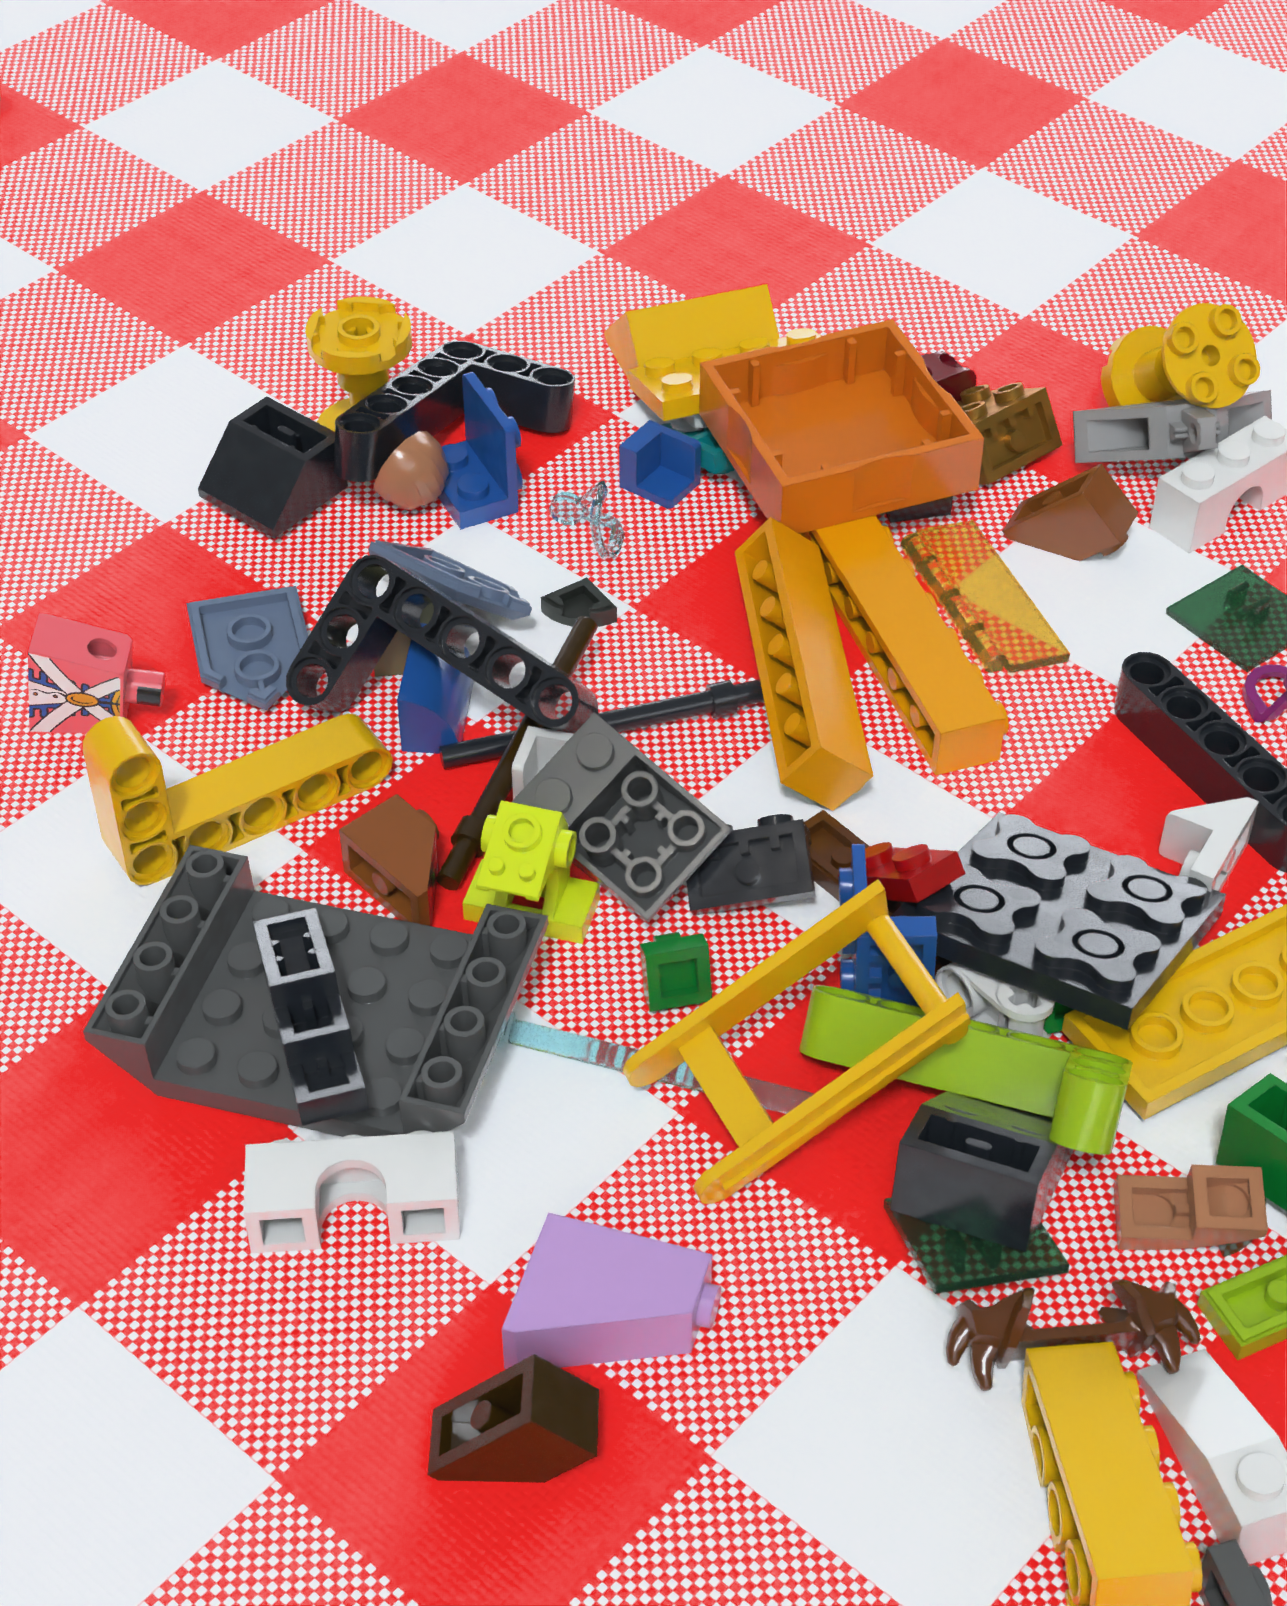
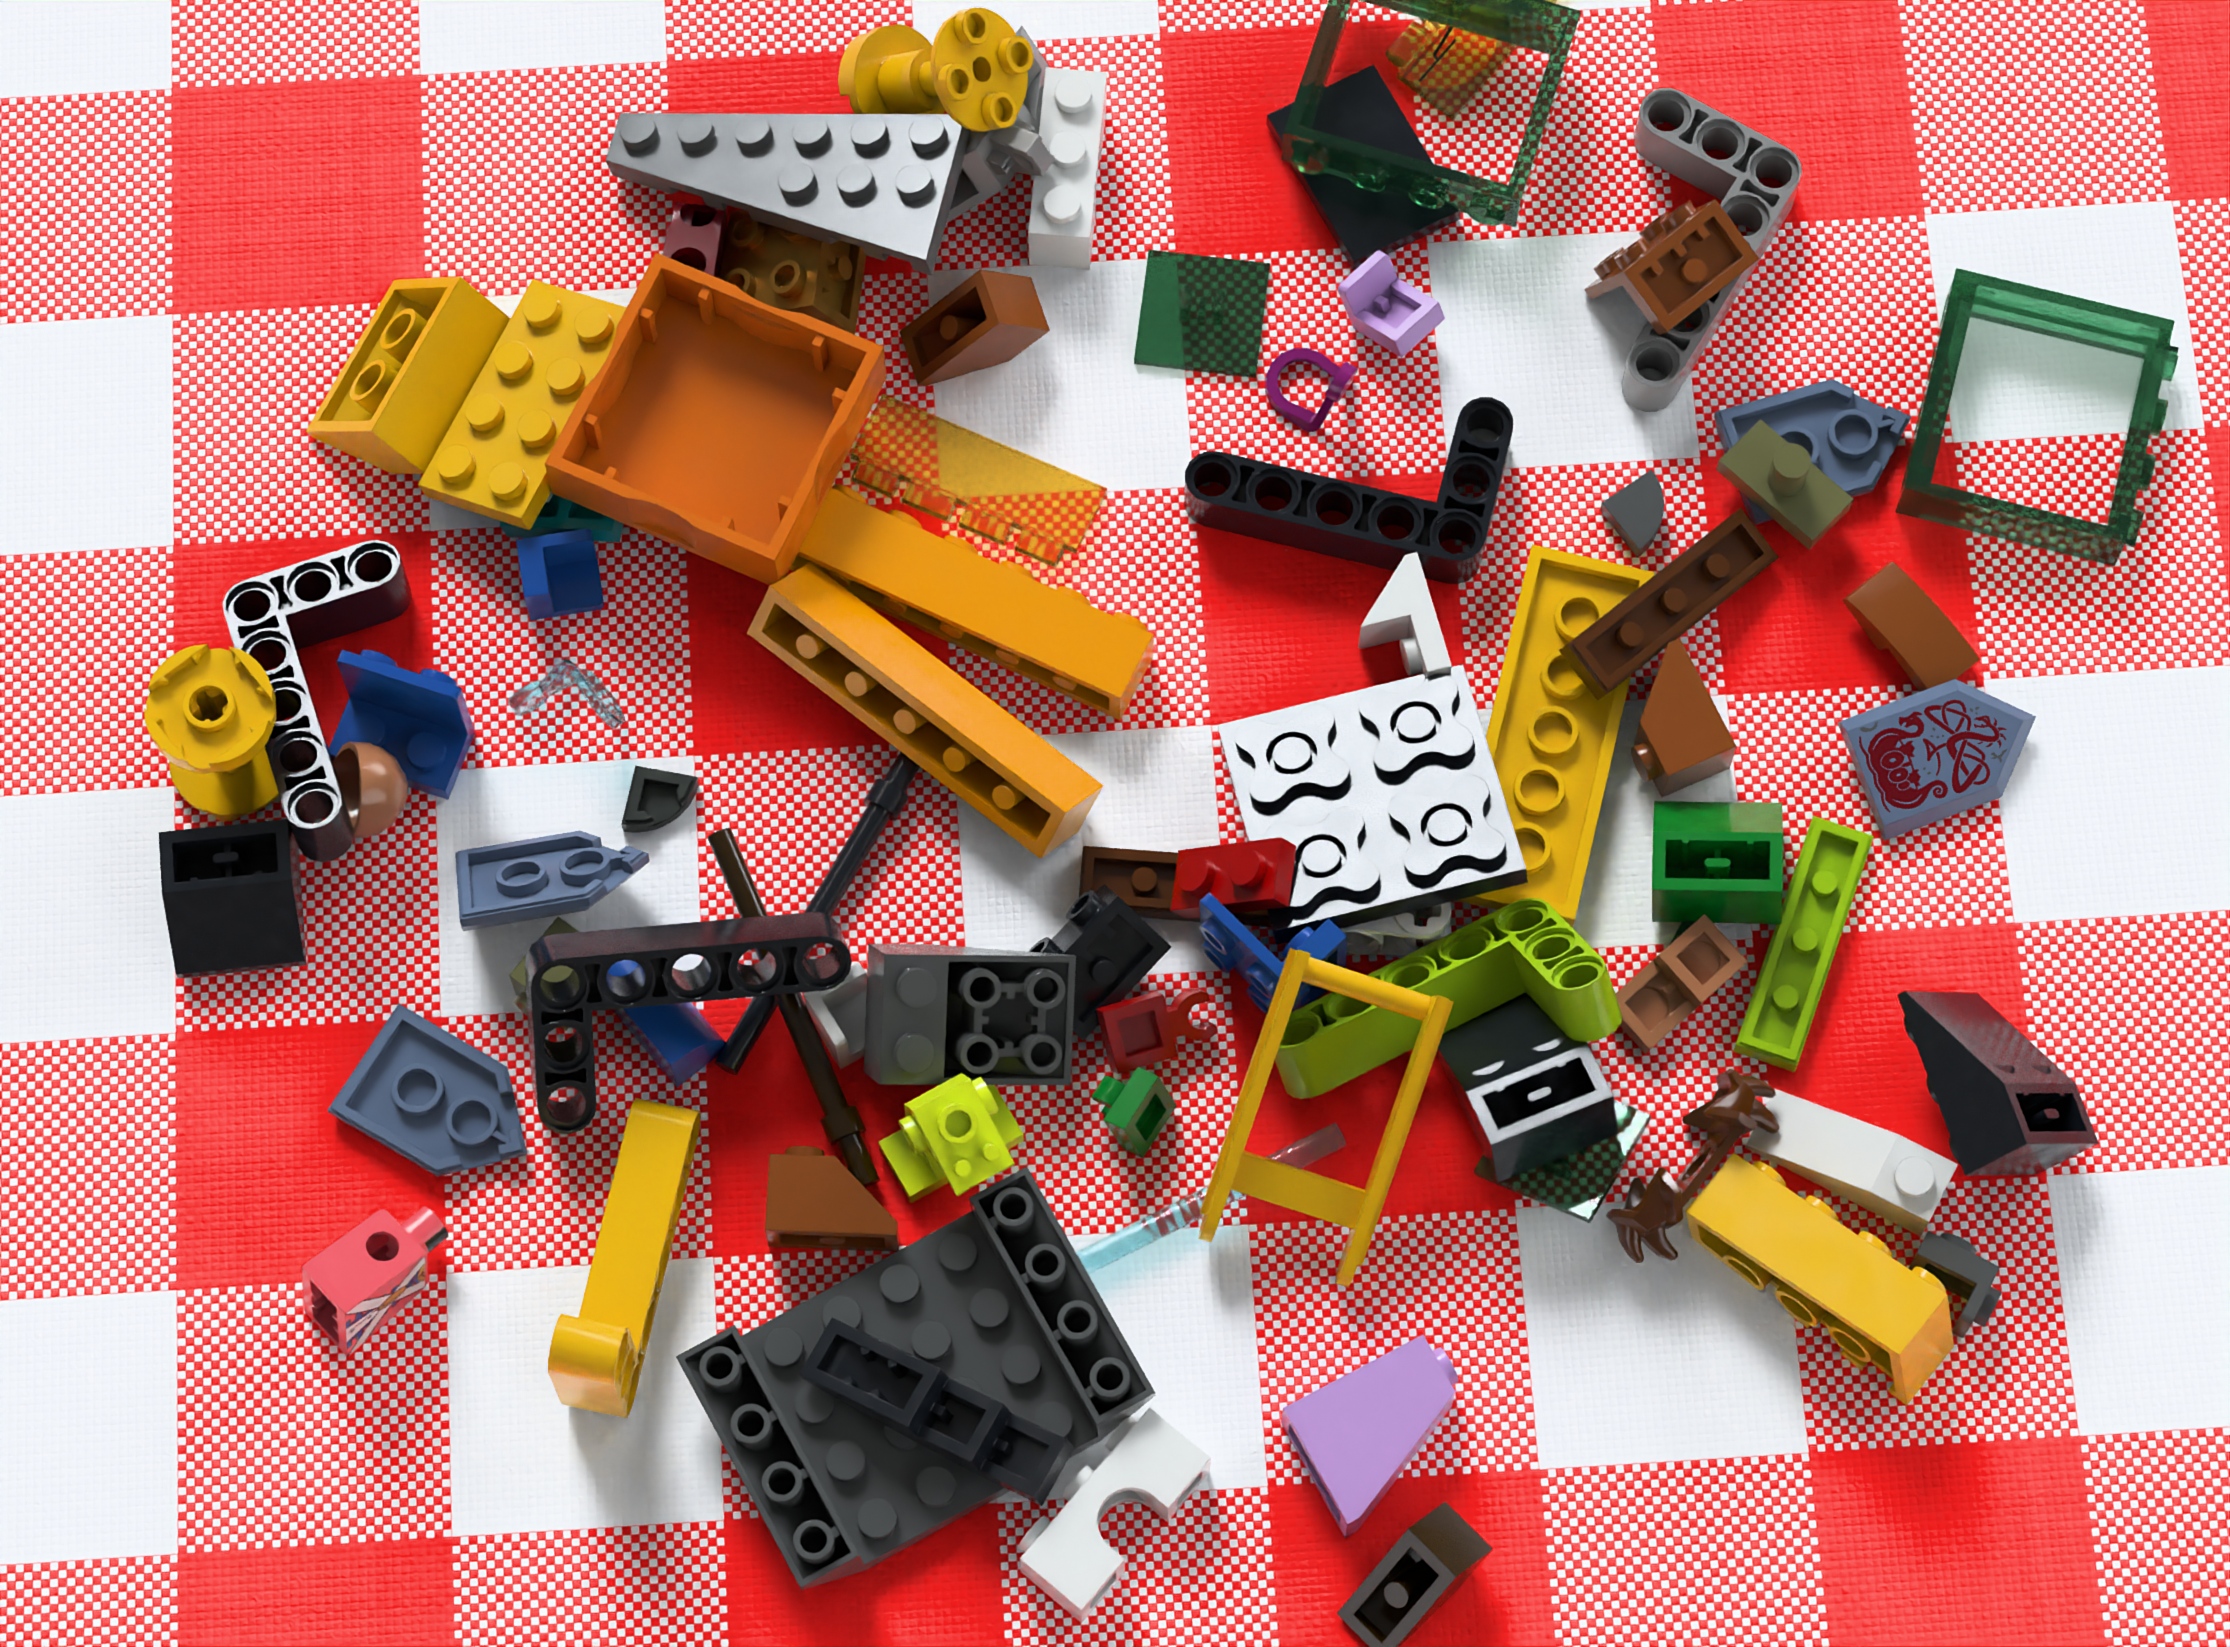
camera: 45 degrees left, 25 degrees up
(739, 929) = (1144, 1029): none -> red plate
(1049, 372) = (818, 175): none -> wing

